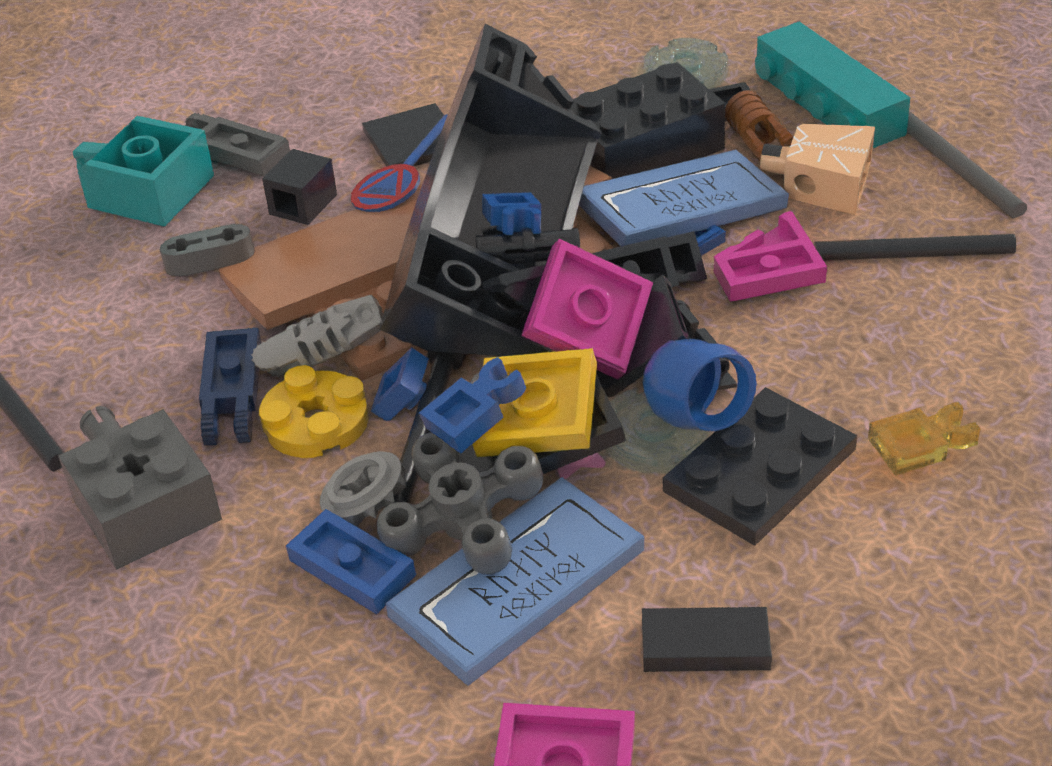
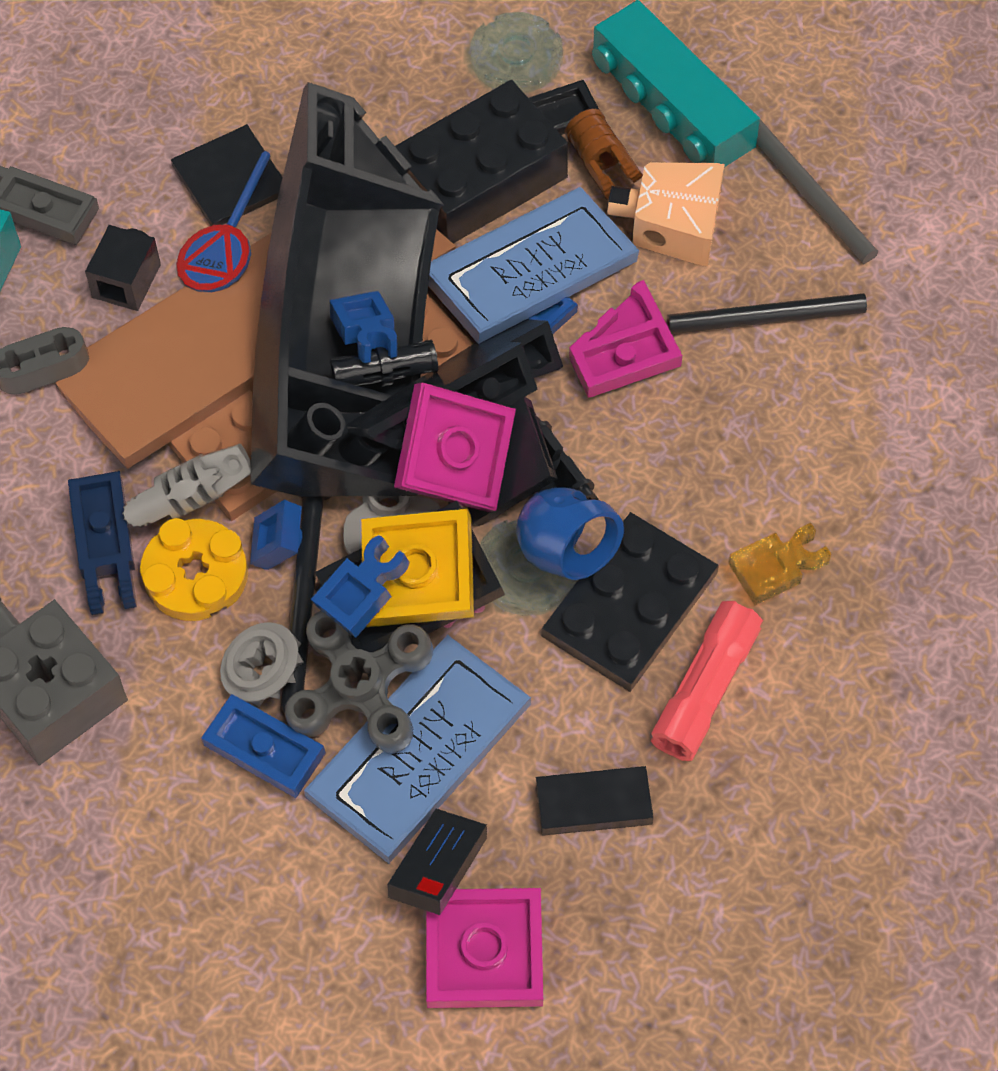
camera: 10 degrees left, 20 degrees up
(518, 676) = (437, 861): none -> black tile
(818, 562) = (706, 681): none -> coral axle

